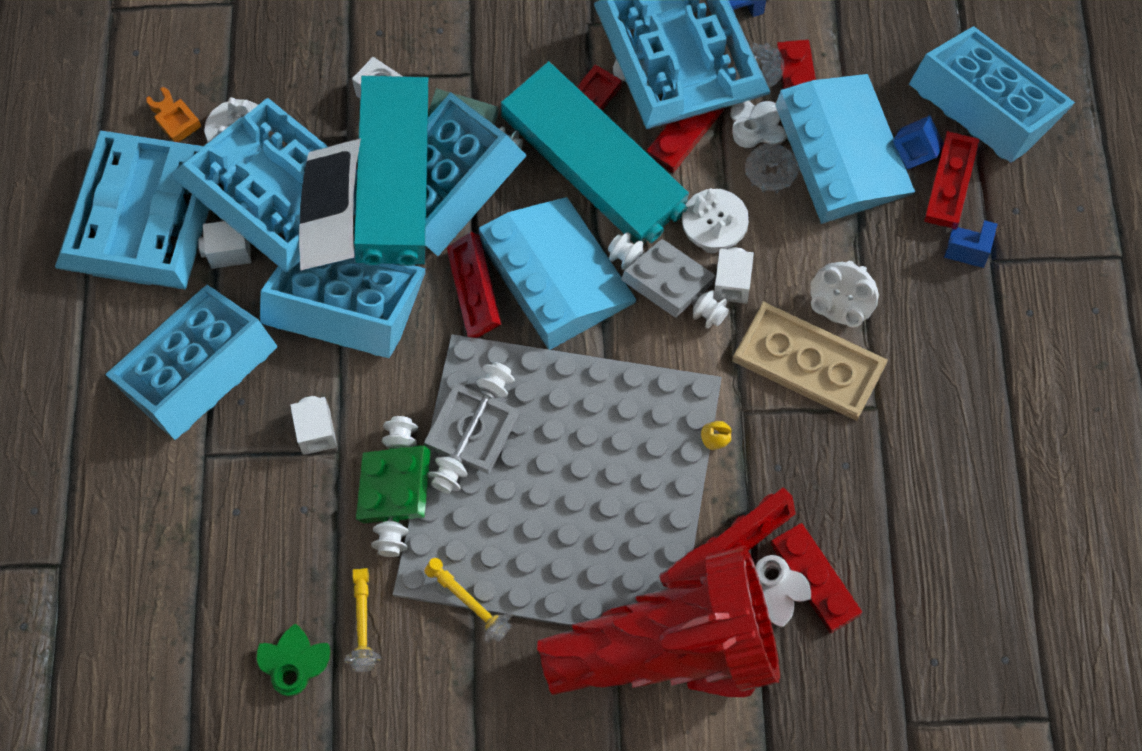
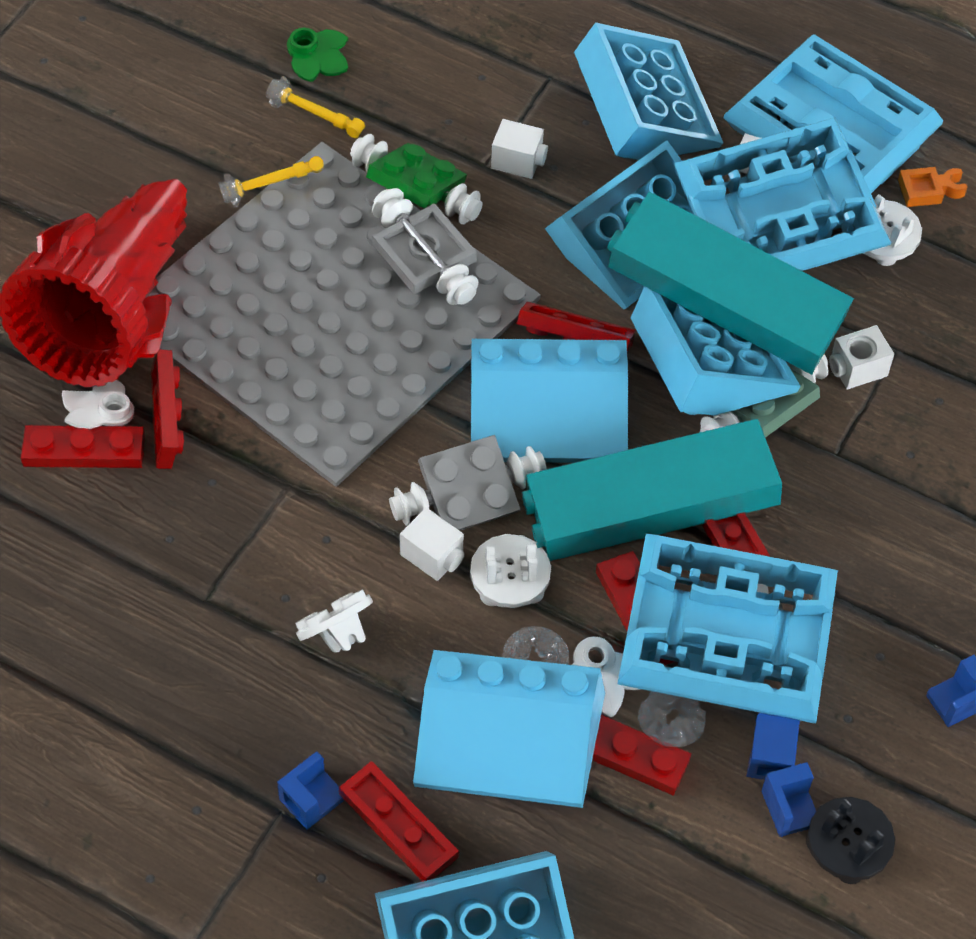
camera: 115 degrees right, 10 degrees down
(328, 205) = (721, 204): sticker -> none
(716, 441) = (283, 441): yellow hinge -> none
(810, 361) = (295, 568): tan tile -> none
(918, 142) = (467, 816): blue panel -> none

